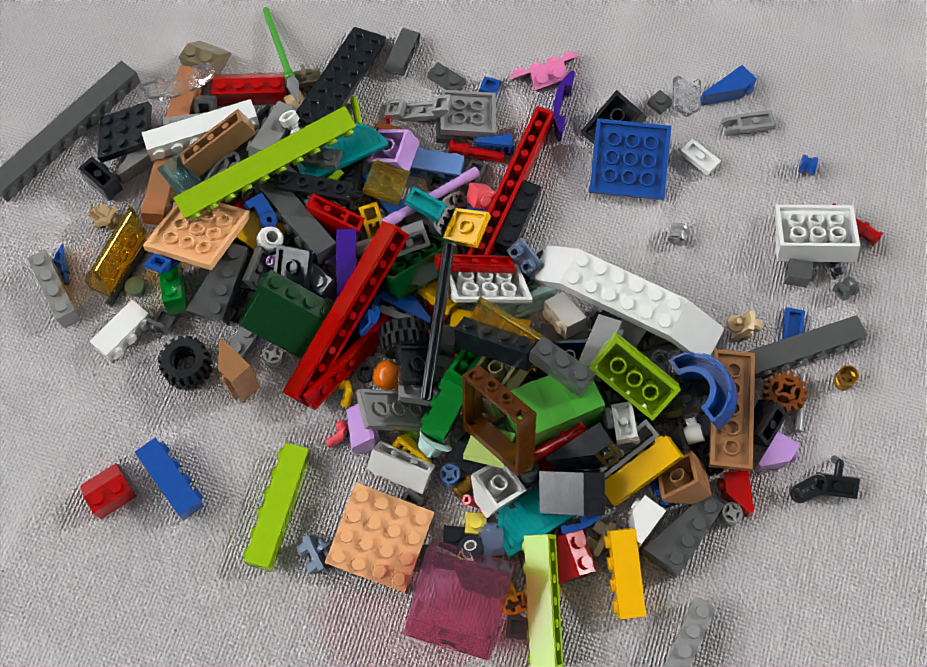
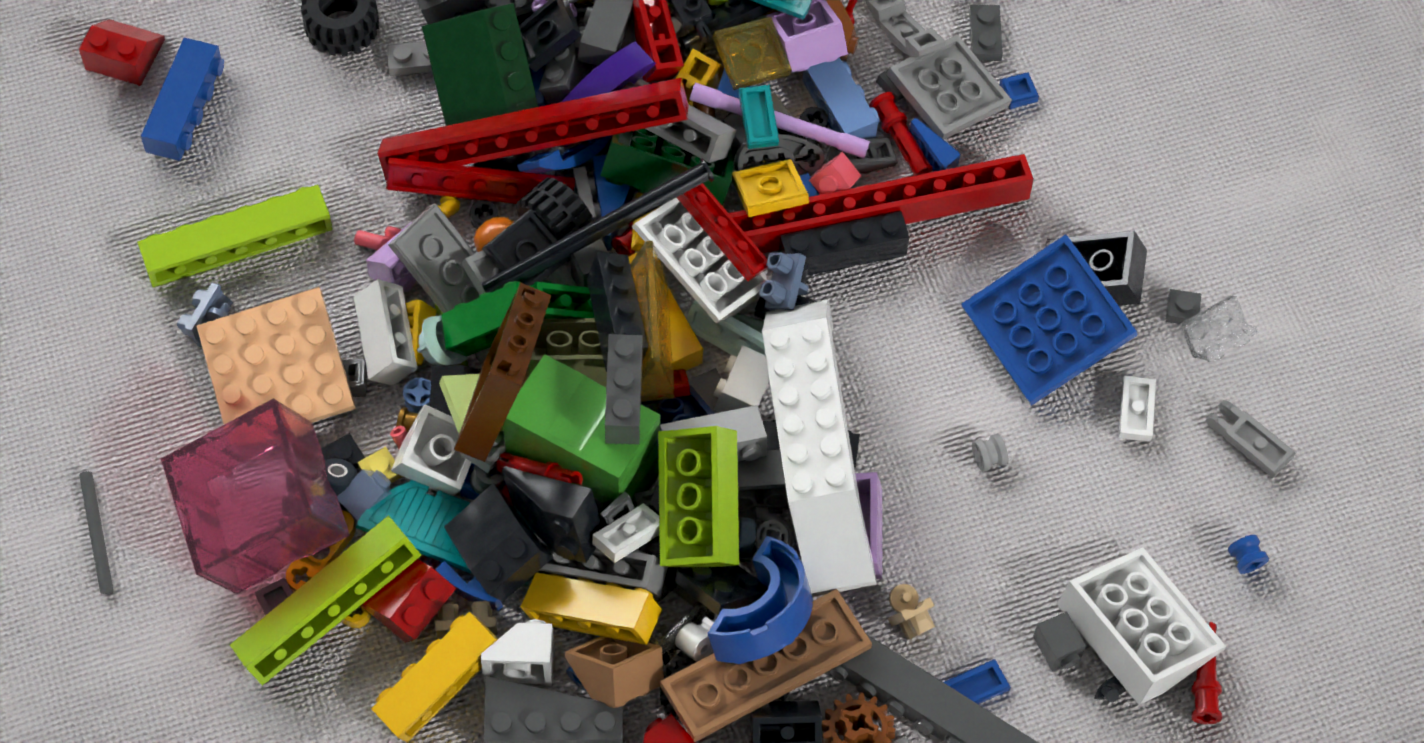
camera: 50 degrees right, 5 degrees down
(236, 373) = (361, 68): medium nougat slope -> none
(272, 352) = (424, 102): light grey wheel -> none
(546, 74) = (1100, 143): bright pink bracket -> none
(564, 88) = (1097, 175): dark purple slope -> none
(731, 87) = (1286, 379): blue slope -> none
(846, 288) = (1088, 719): dark grey wheel -> none

